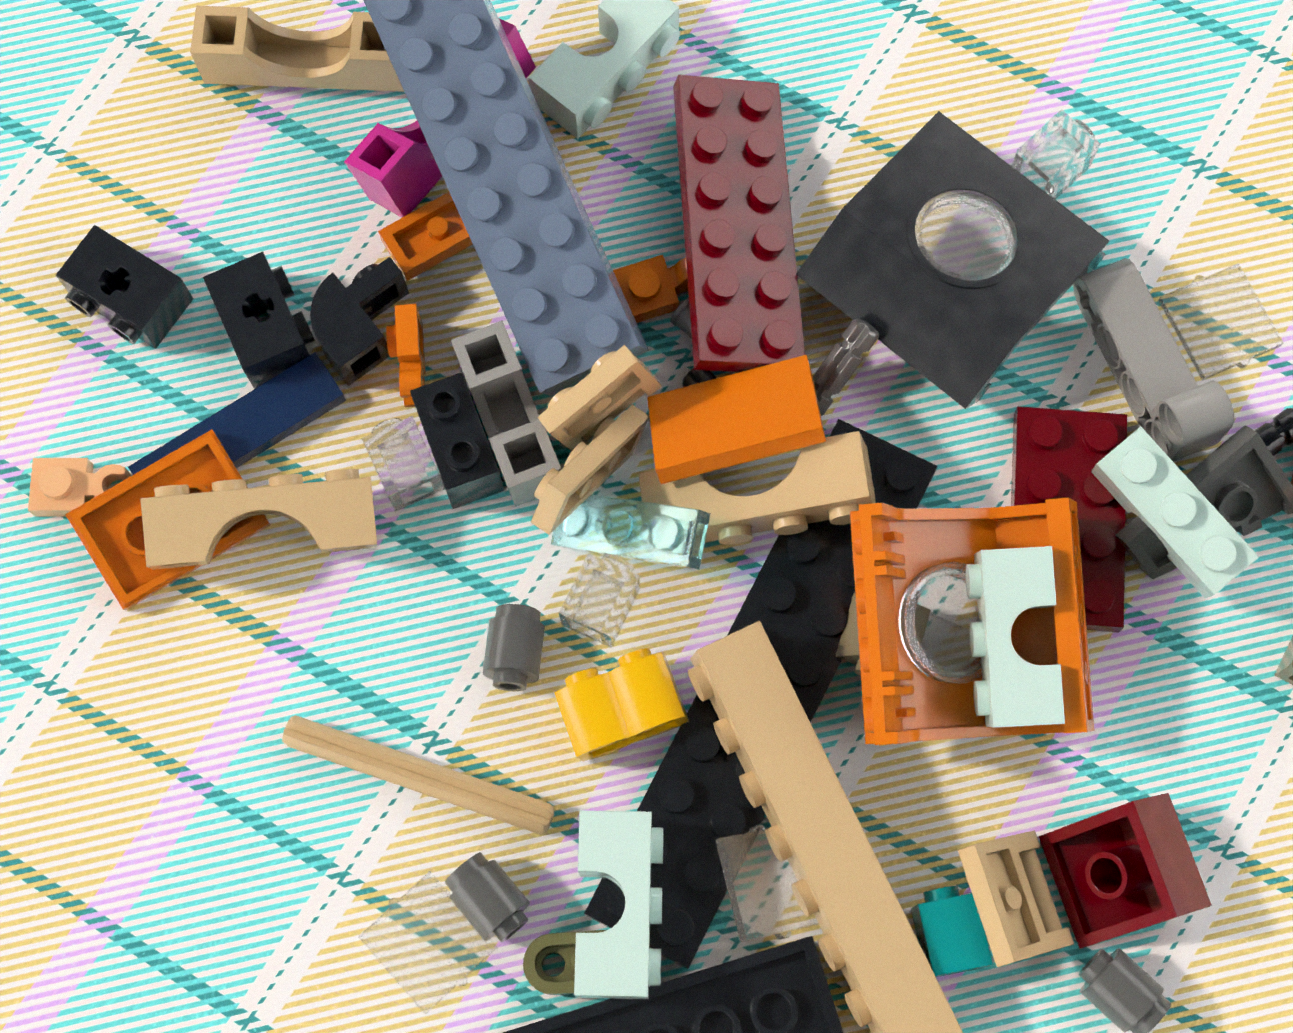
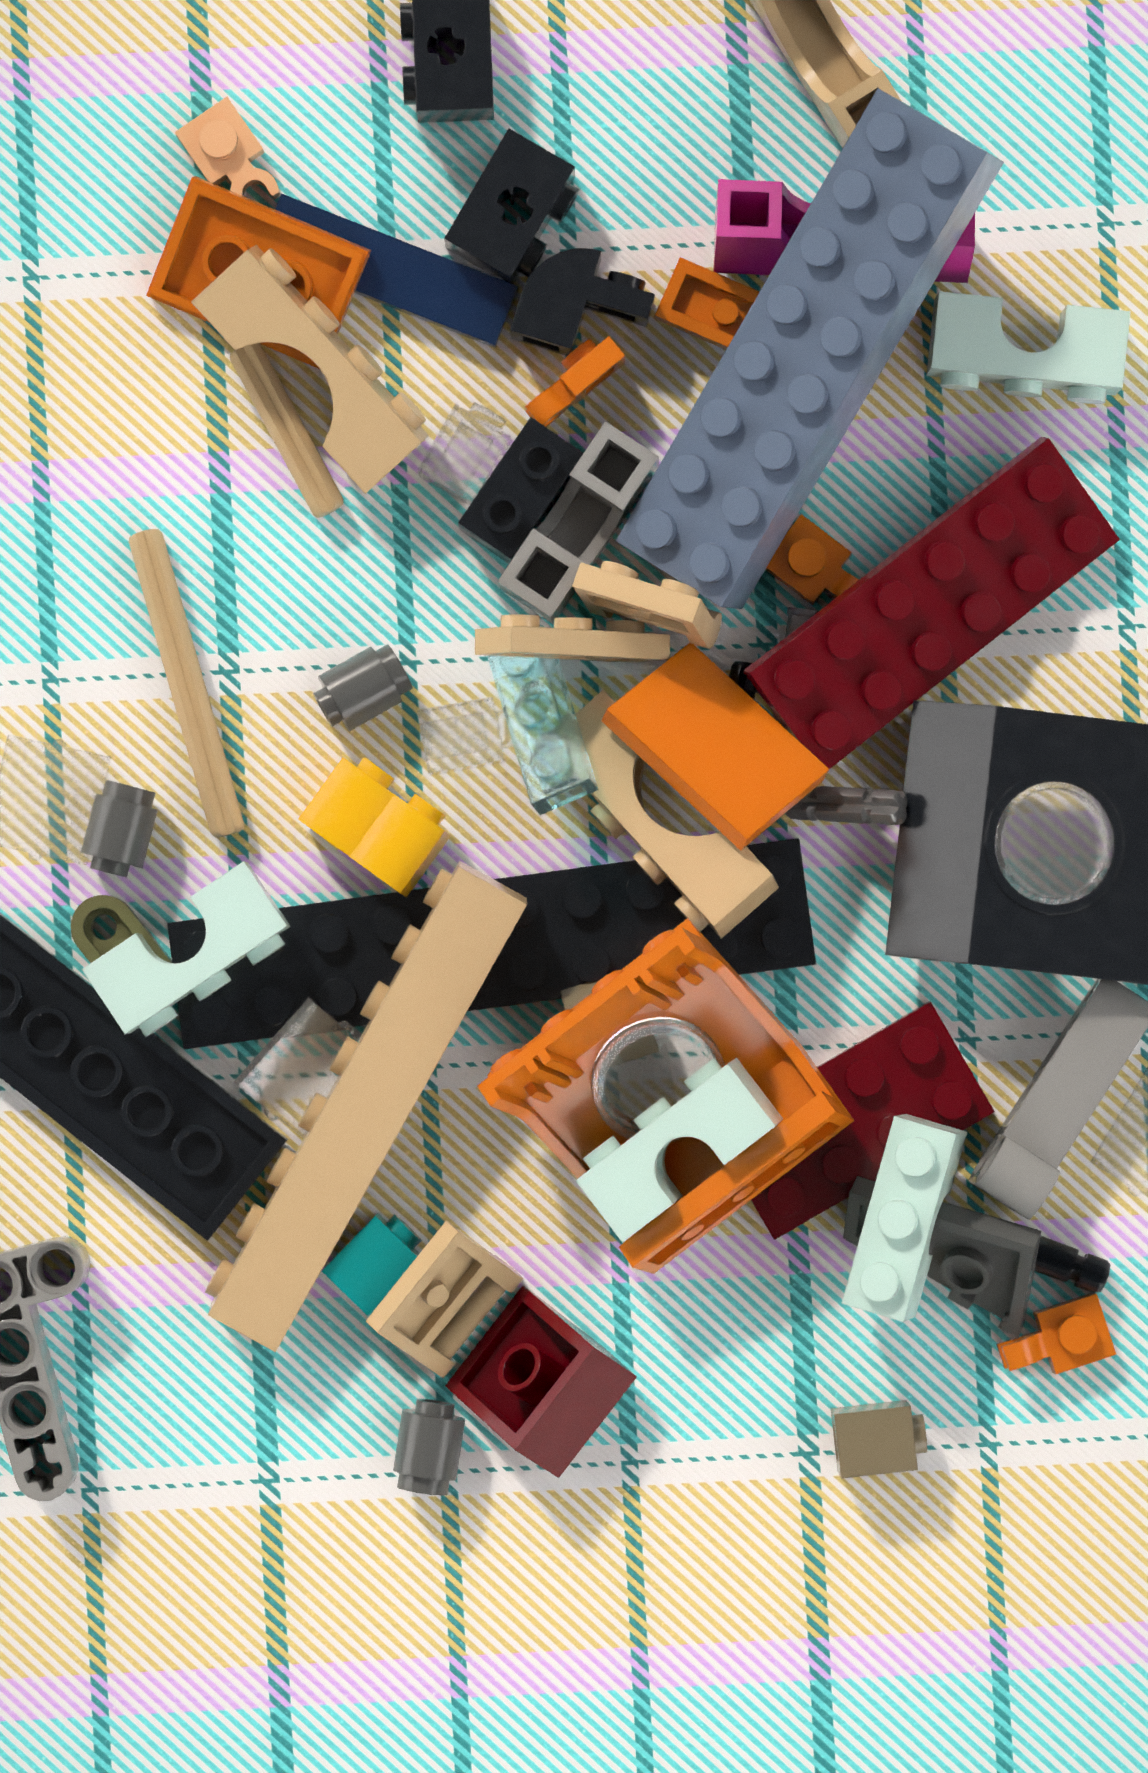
camera: 50 degrees right, 15 degrees up
(292, 576) = (286, 429): none -> tan axle

